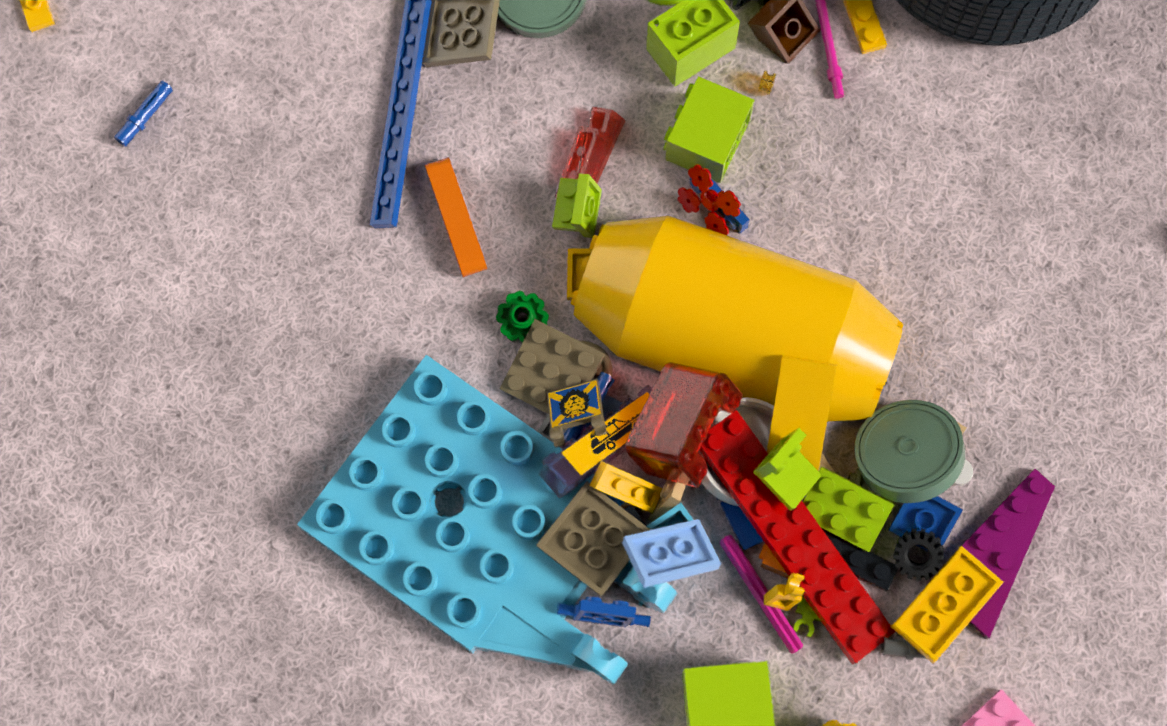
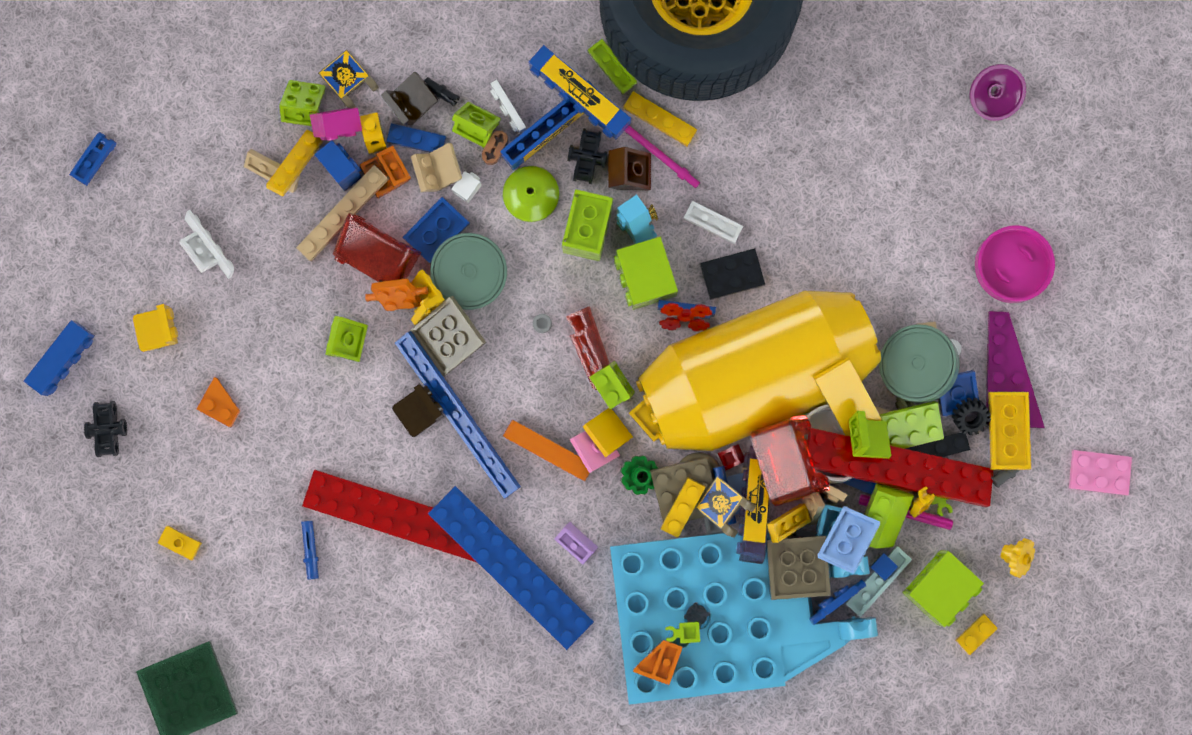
camera: 40 degrees left, 10 degrees up
(256, 159) = (379, 512): none -> red plate
(312, 295) = (511, 567): none -> blue plate
(365, 504) = (660, 662): none -> orange wing
(368, 74) = (418, 410): none -> dark brown bracket
(399, 329) = (576, 543): none -> lavender slope
(419, 498) = (687, 632): none -> lime plate
(502, 251) = (590, 453): none -> bright pink plate
(529, 247) = (607, 432): none -> yellow tile
(534, 381) = (682, 507): none -> yellow plate
(564, 97) = (542, 323): none -> light grey tile
(631, 381) = (731, 457): none -> red slope
(667, 637) = (876, 585): none -> light aqua plate
(685, 624) = (884, 566): none -> blue tile
(699, 502) = (834, 495): none -> tan wing
(743, 572) = (889, 508): none -> lime slope
(744, 63) = (635, 219): none -> medium azure wedge
(796, 208) = (732, 274): none -> black plate
(822, 142) = (713, 222): none -> white plate
(1104, 443) = (1014, 264): none -> dark pink piece

